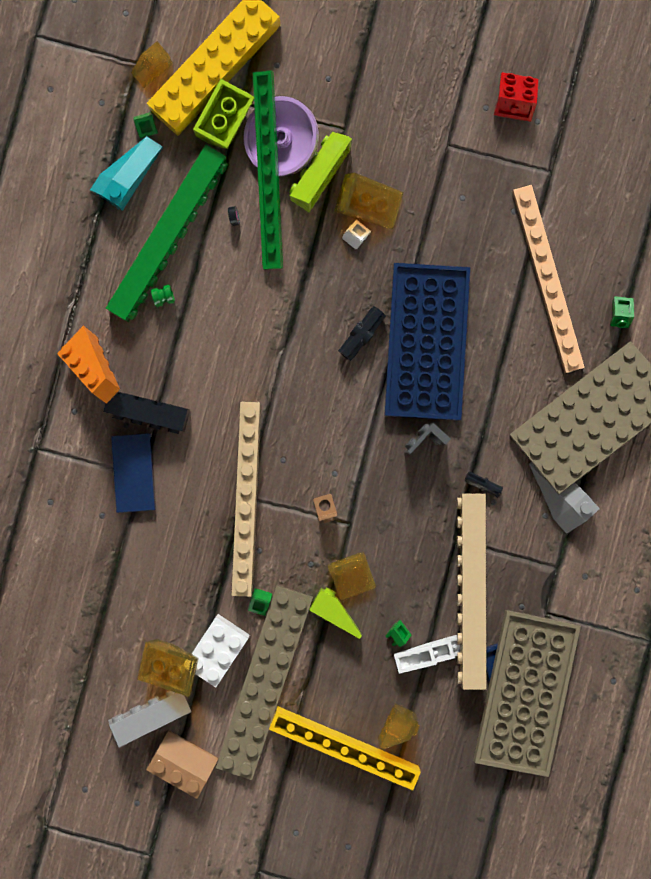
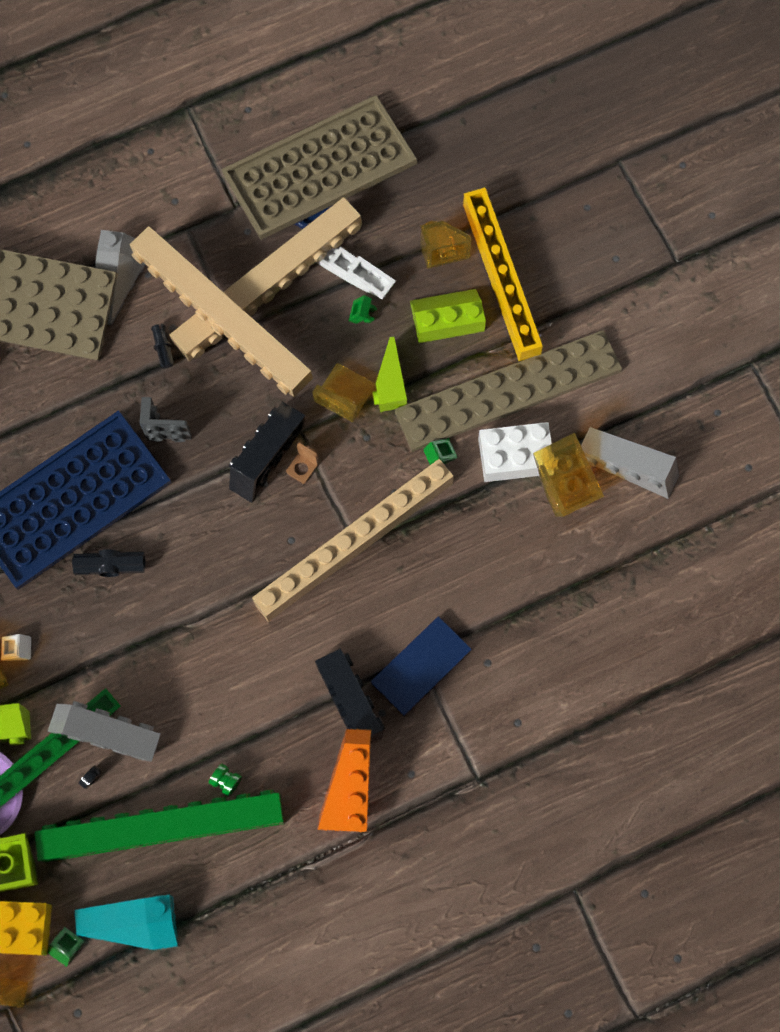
camera: 130 degrees left, 15 degrees down
(182, 764) = (644, 399): medium nougat slope -> none
(251, 242) = (104, 731): none -> light grey wedge
(348, 688) = (448, 315): none -> lime slope
(352, 492) = (264, 450): none -> black wedge
(471, 539) = (221, 311): none -> tan brick

